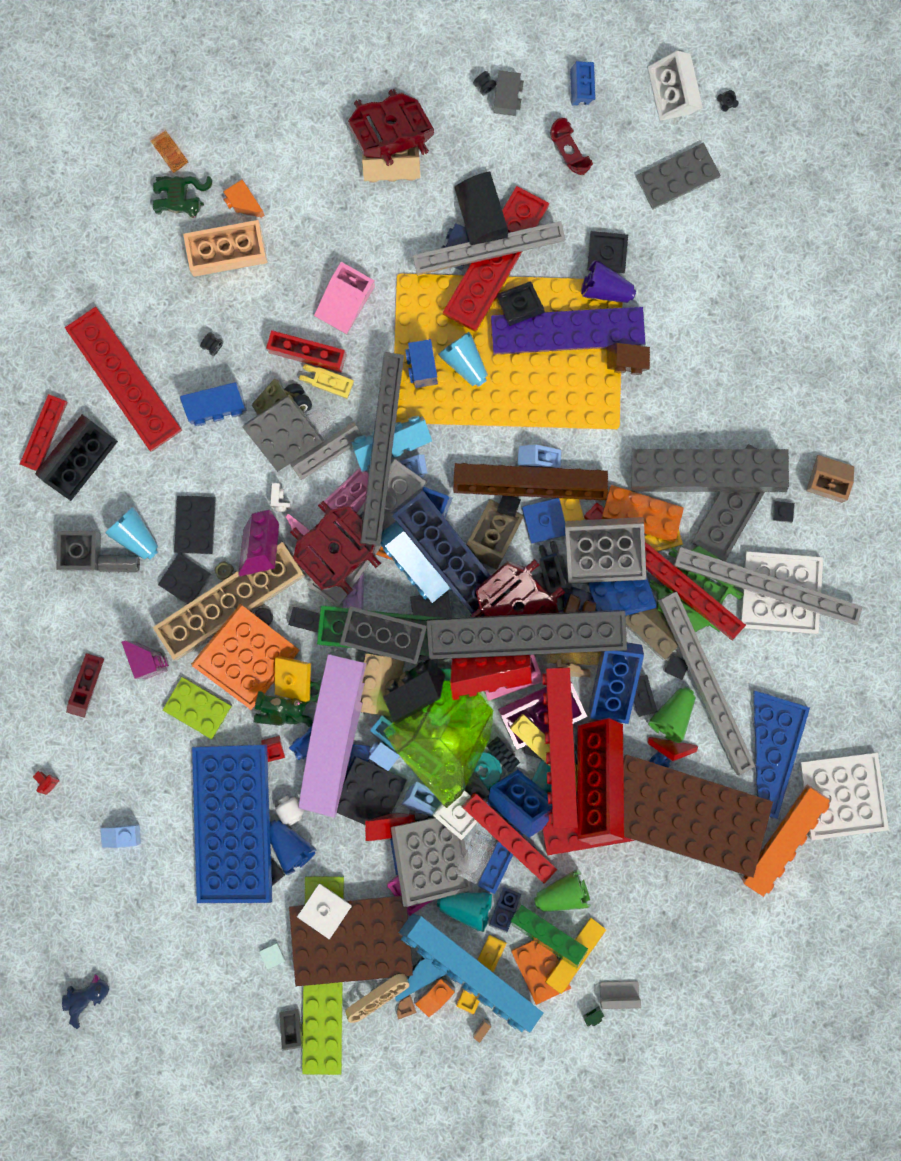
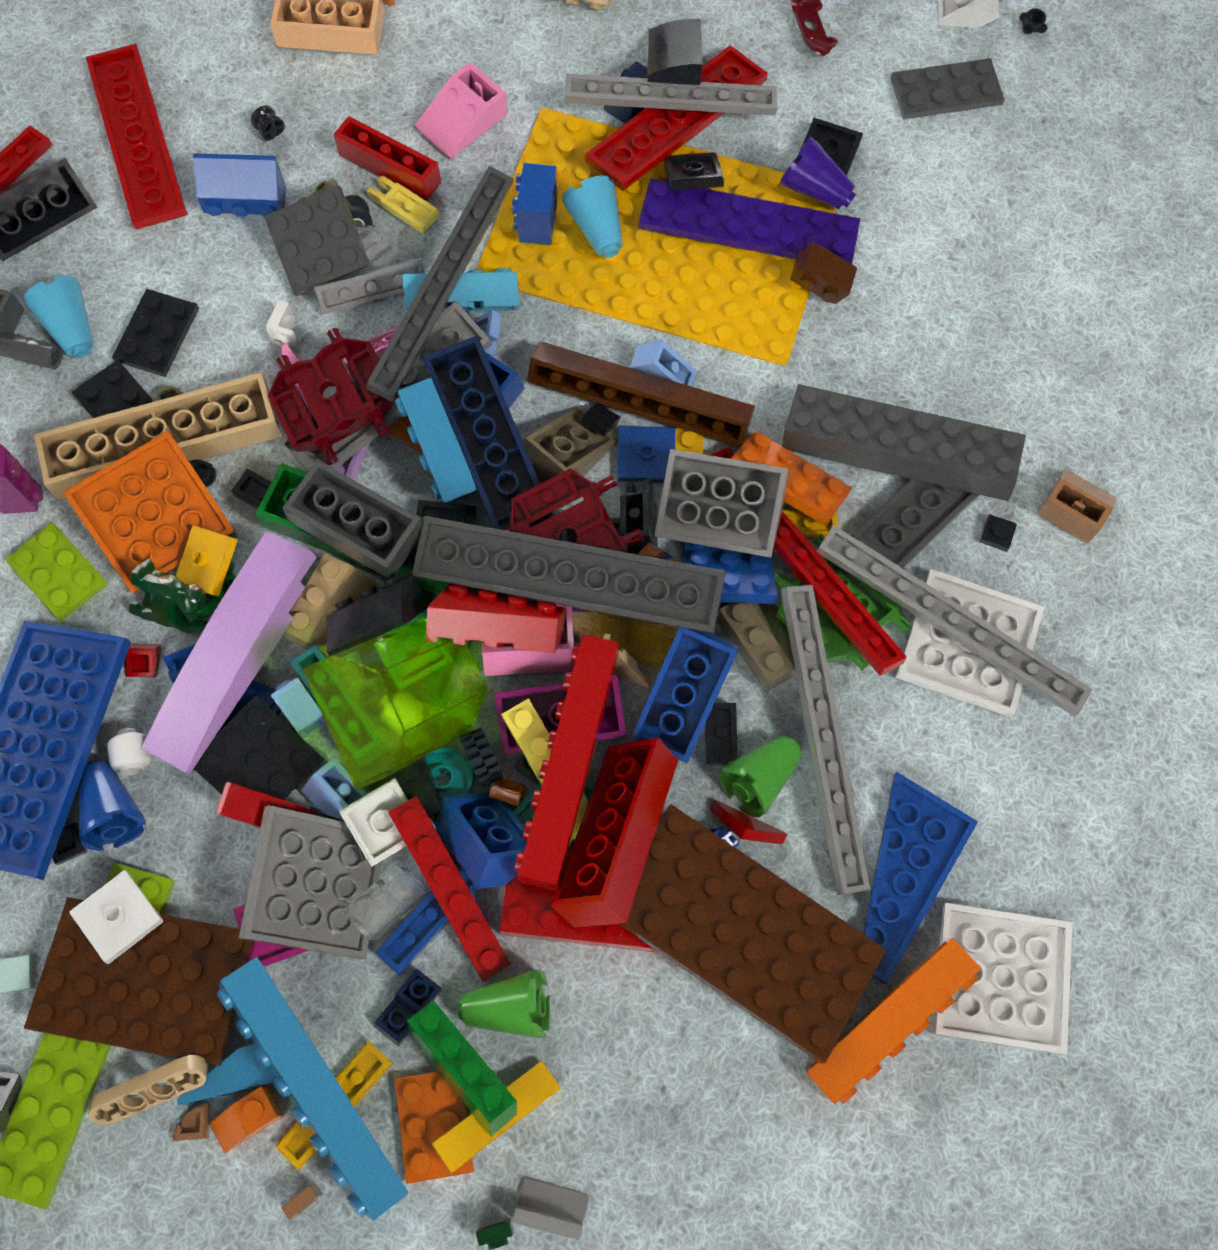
camera: 10 degrees right, 15 degrees down
(259, 543) = (228, 363): magenta slope -> none
(467, 908) = (348, 984): teal cone -> none
(525, 769) = (507, 791): none -> orange tile
(676, 667) = (784, 707): black tile -> none

